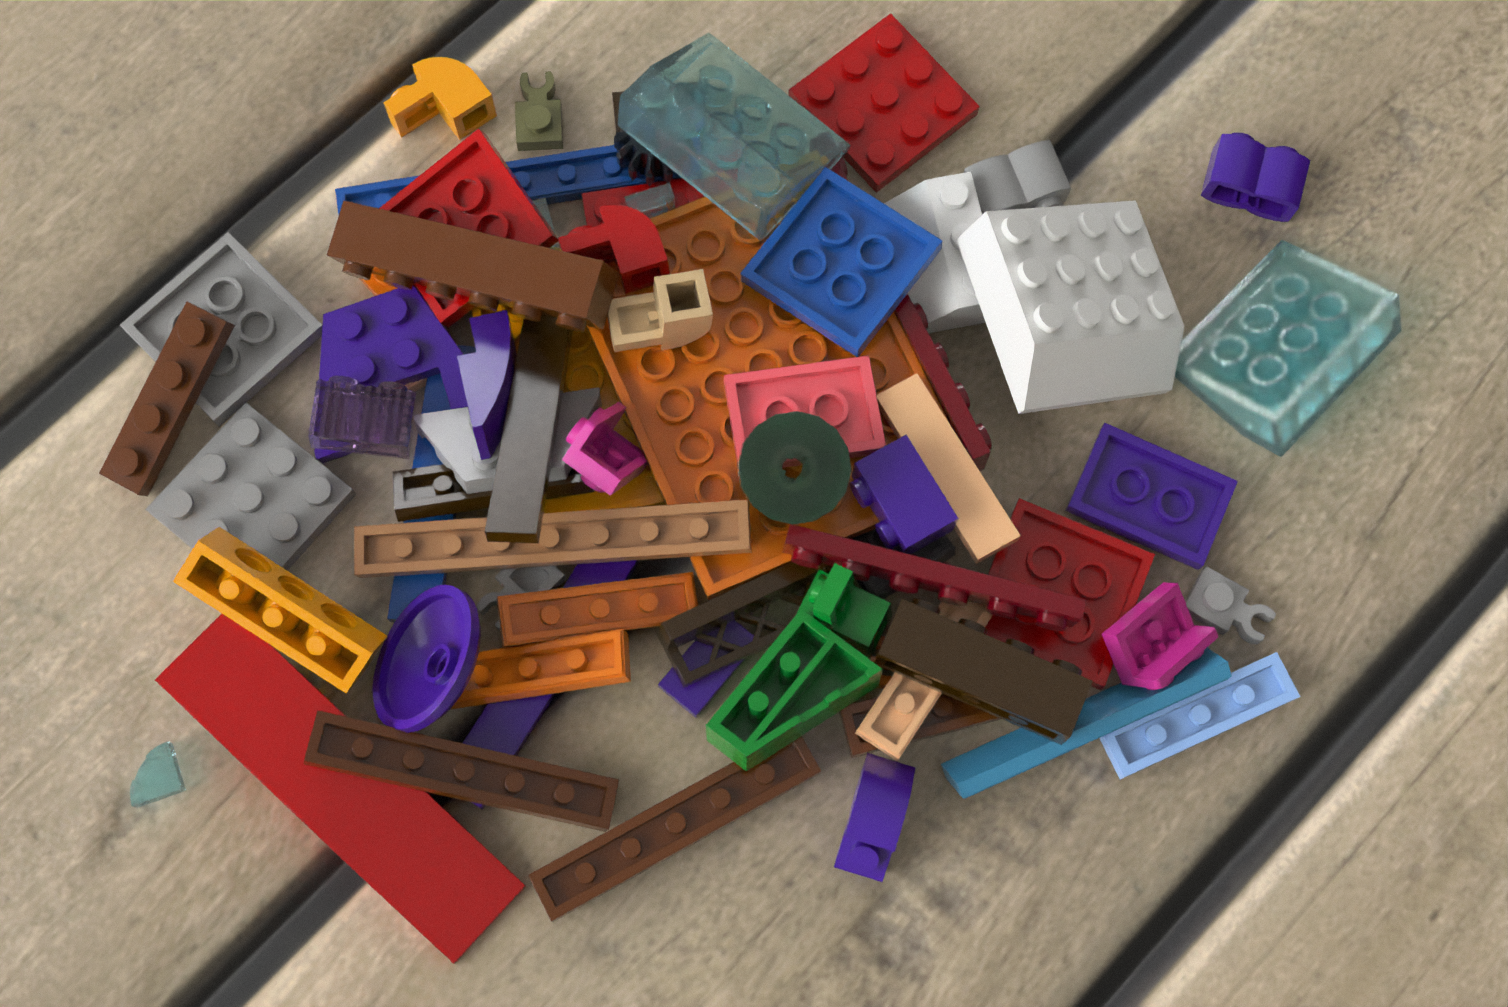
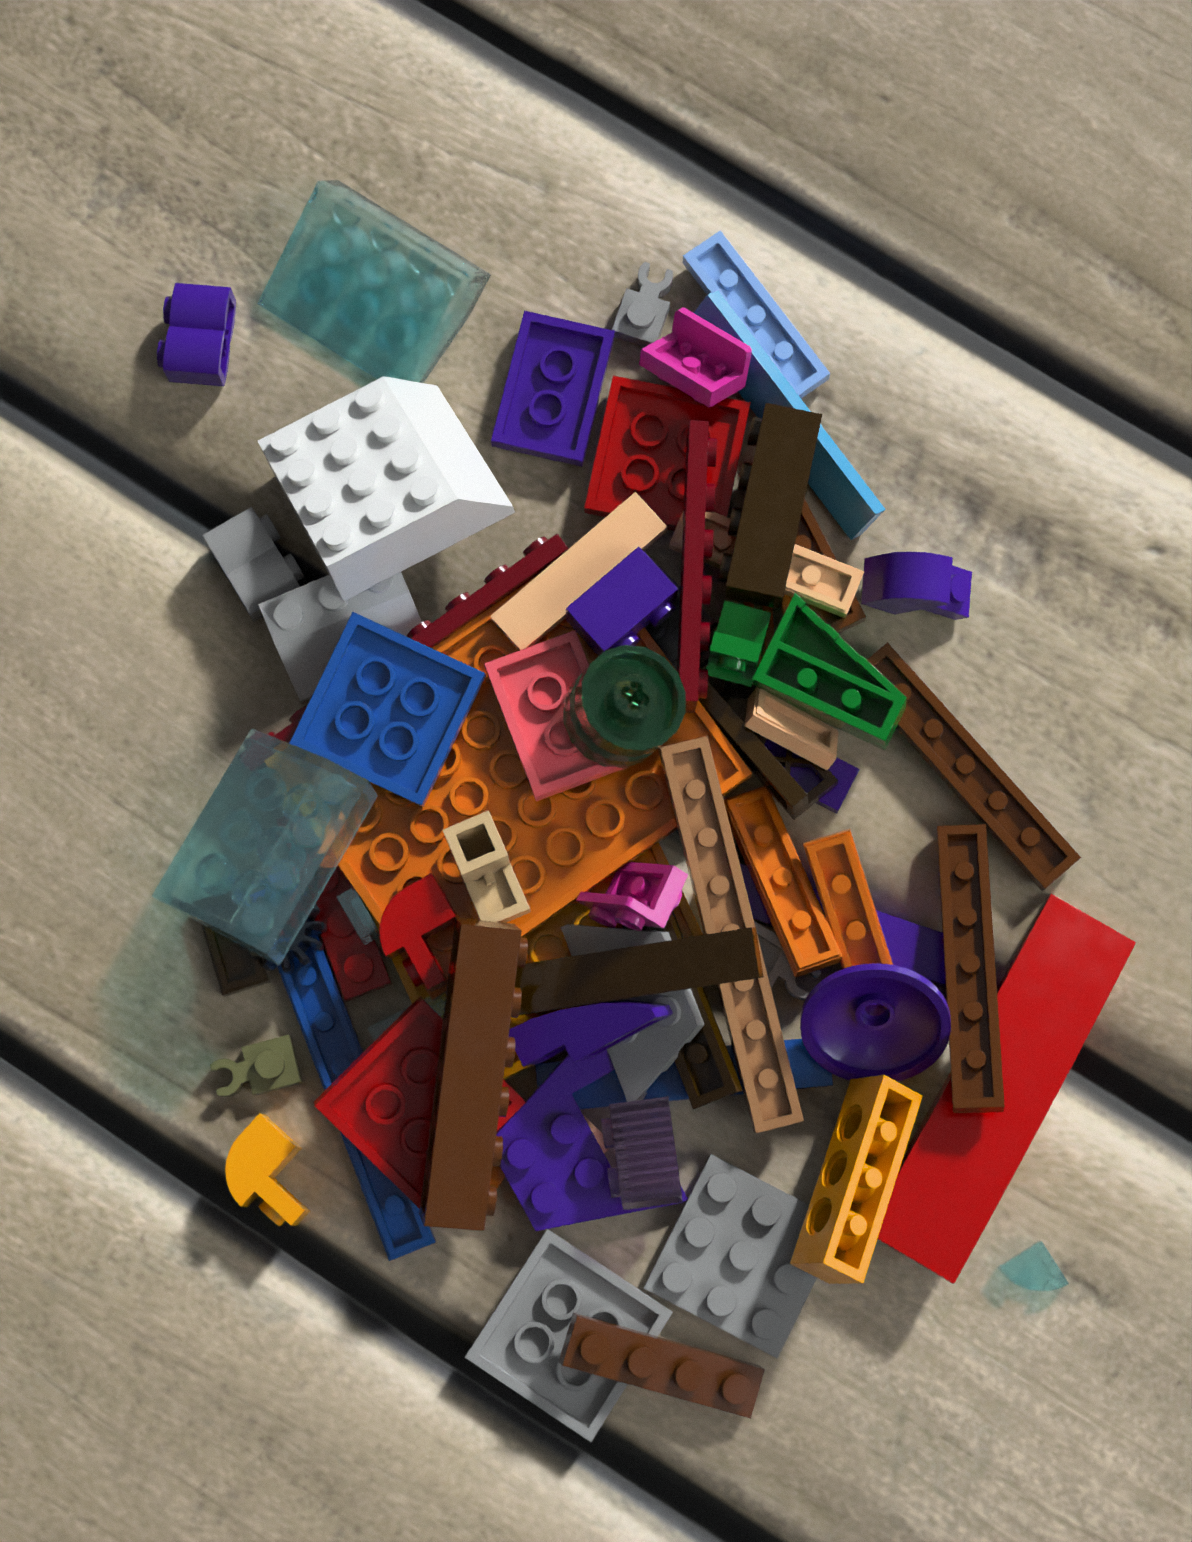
camera: 95 degrees left, 5 degrees up
(744, 645) = (791, 728): none -> light nougat tile
(885, 101) = (177, 714): red plate -> none

